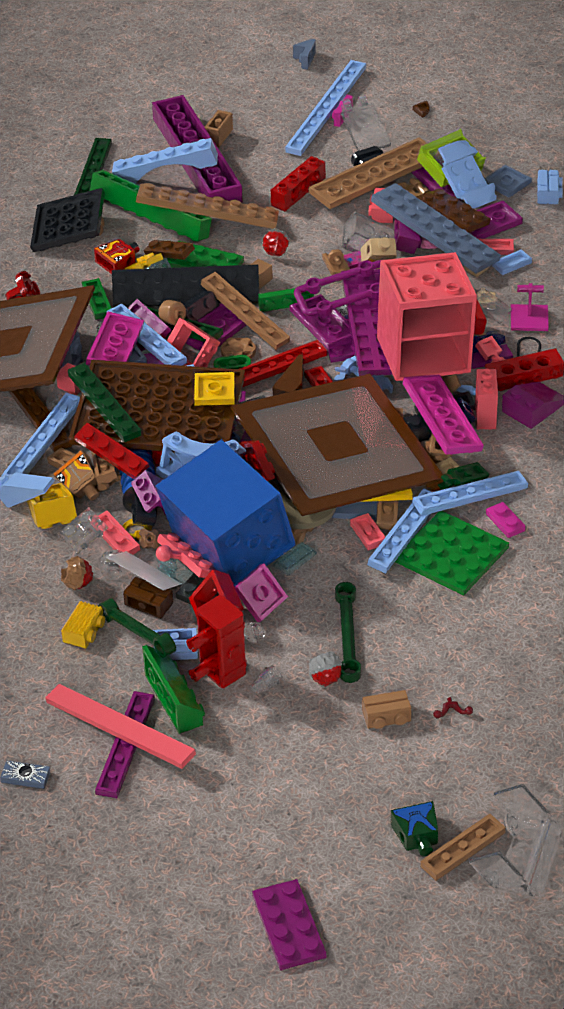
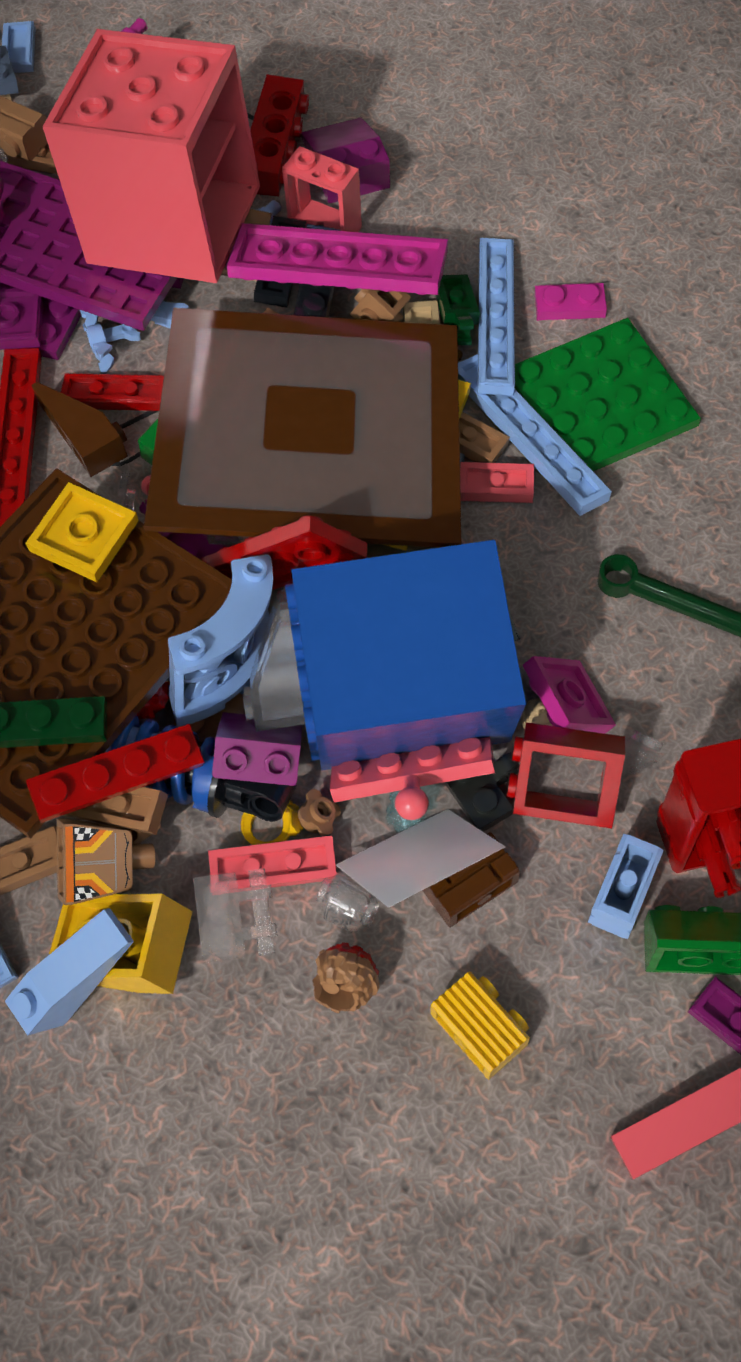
camera: 60 degrees left, 20 degrees up
(163, 643) = (665, 909): dark green piece -> none

